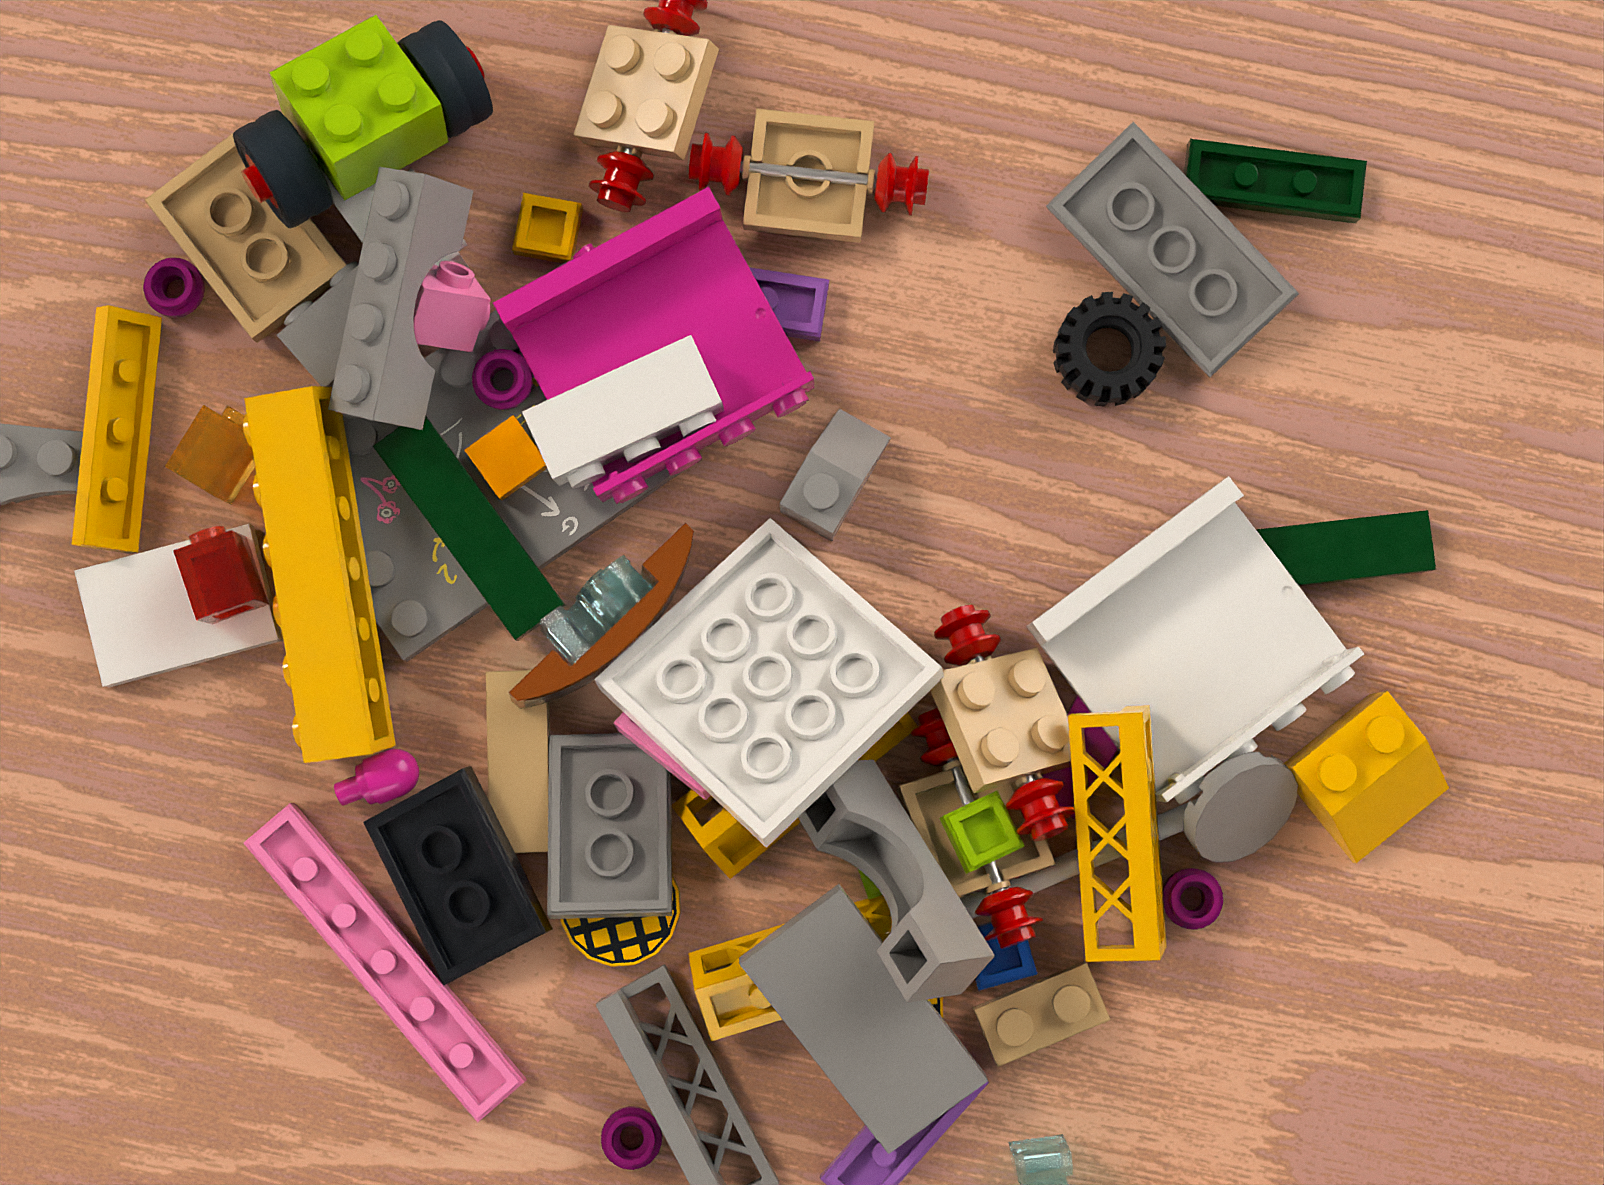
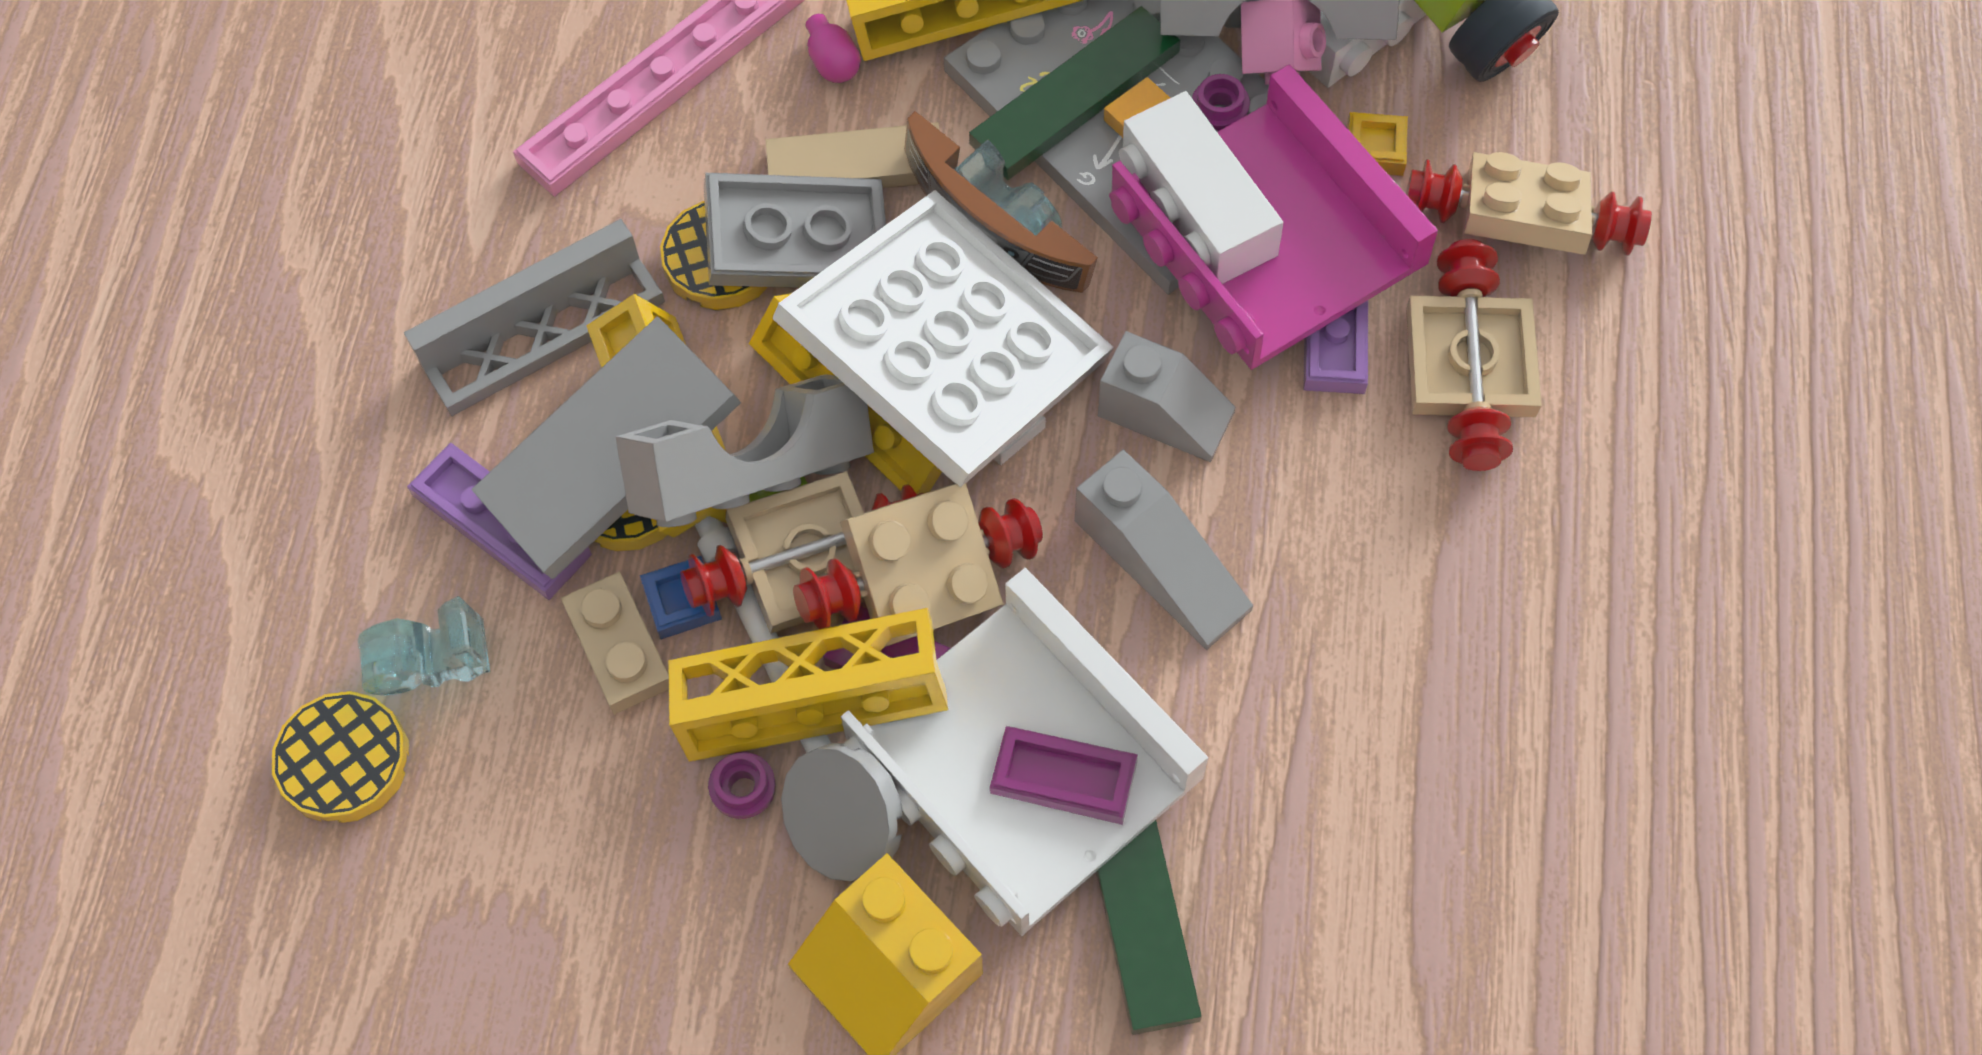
camera: 85 degrees right, 20 degrees down
(457, 875) = (744, 115): black tile -> none
(625, 1156) = (488, 266): magenta plate -> none
(981, 832) = (799, 542): lime tile -> none
(993, 495) = (1159, 548): none -> light grey slope
(1119, 315) = (1349, 622): black tyre -> none
(1172, 249) = (1458, 716): light grey tile -> none
(1215, 606) = (1064, 774): none -> magenta tile
(1277, 180) = (1560, 827): dark green tile -> none

